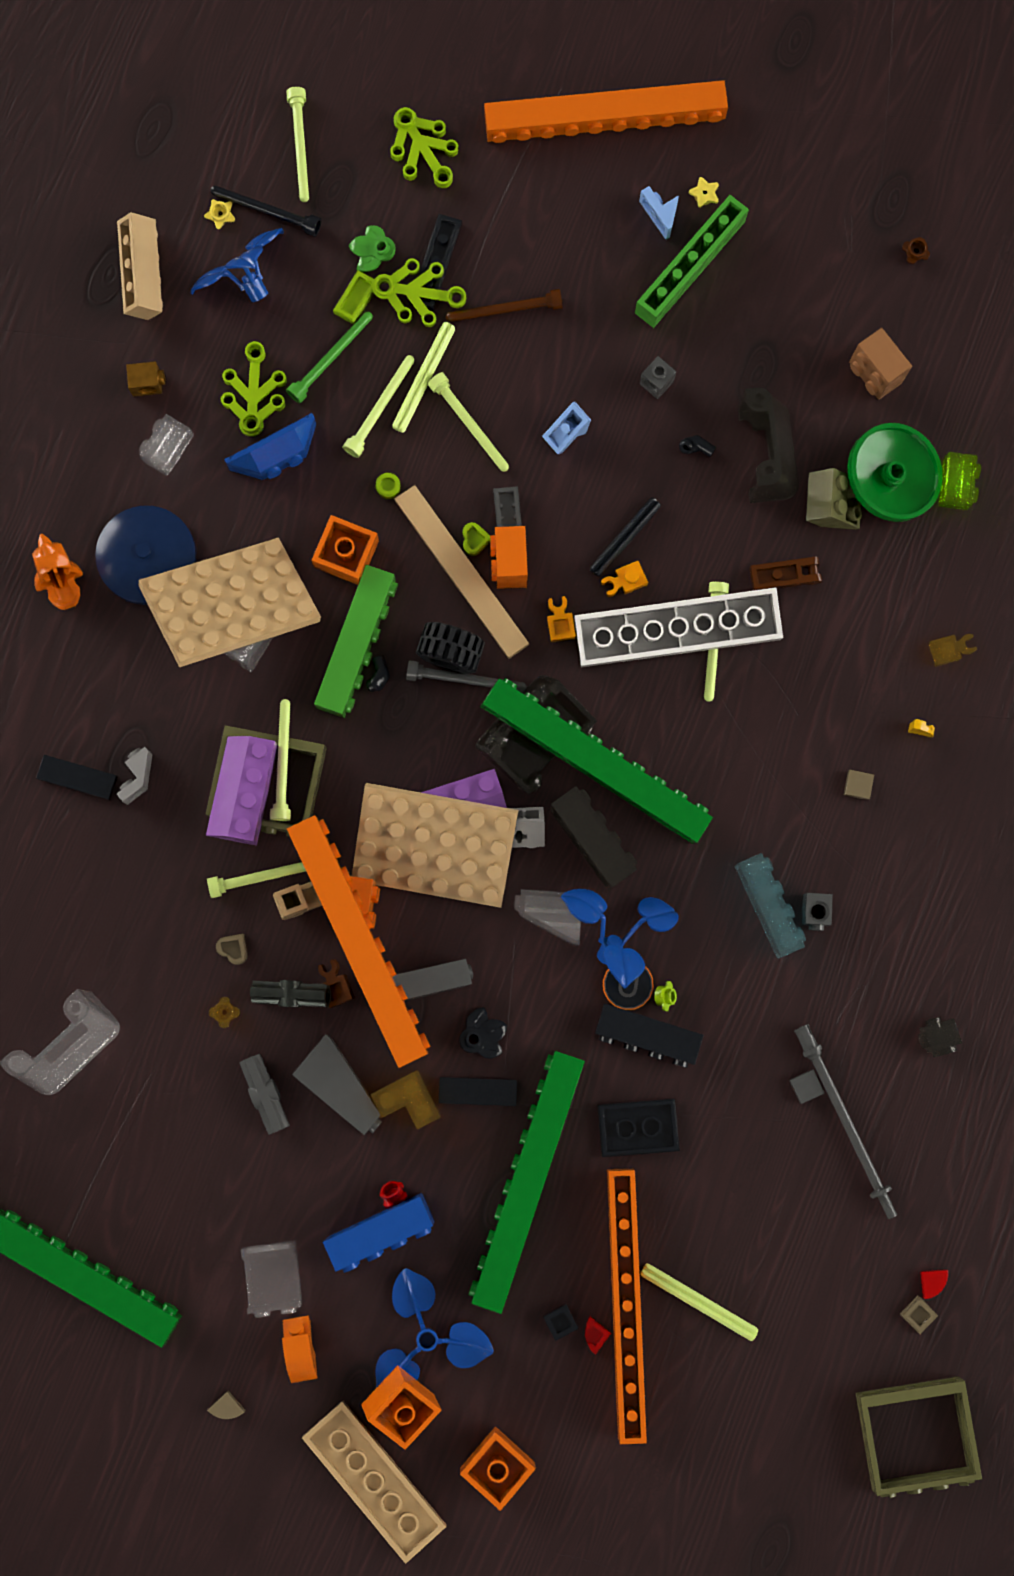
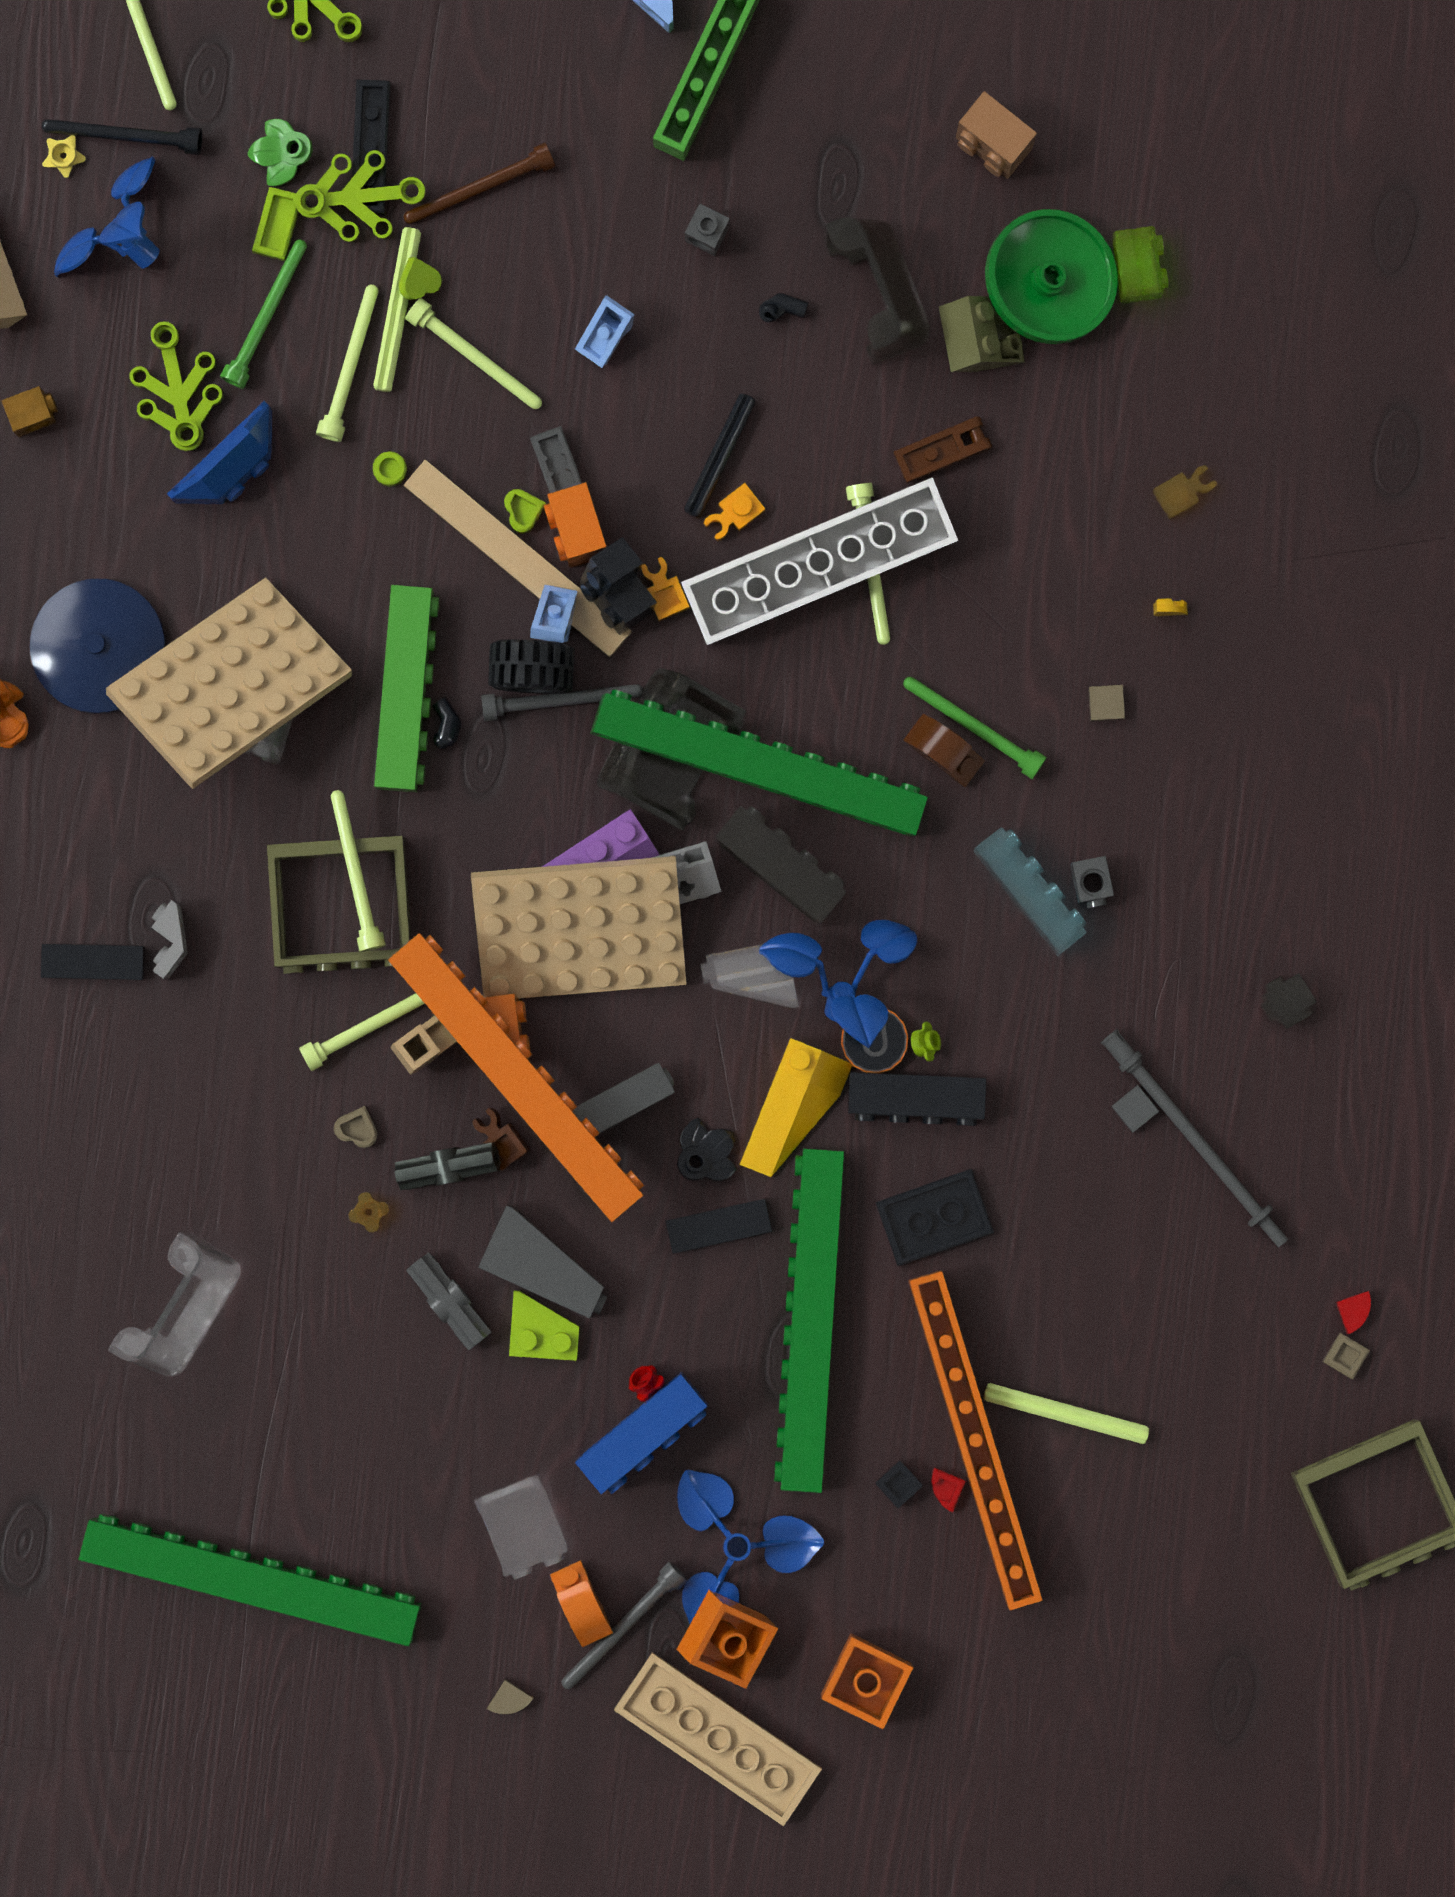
camera: 10 degrees left, 5 degrees up
(165, 444) = (82, 492): clear brick -> none
(242, 789) = (313, 922): medium lavender slope -> none
(326, 1135) = (541, 1331): none -> lime wing
(345, 549) = (358, 572): orange brick -> none
(371, 1348) = (669, 1580): none -> dark grey piece
(407, 1092) = (635, 1251): clear yellow brick -> none
(444, 359) = (418, 279): none -> lime tile
(477, 615) = (554, 614): none -> light blue slope
(526, 607) = (615, 588): none -> black brick
(561, 1012) = (797, 1099): none -> yellow wedge
(734, 786) = (944, 749): none -> reddish brown brick
(791, 811) = (1028, 761): none -> bright green piece

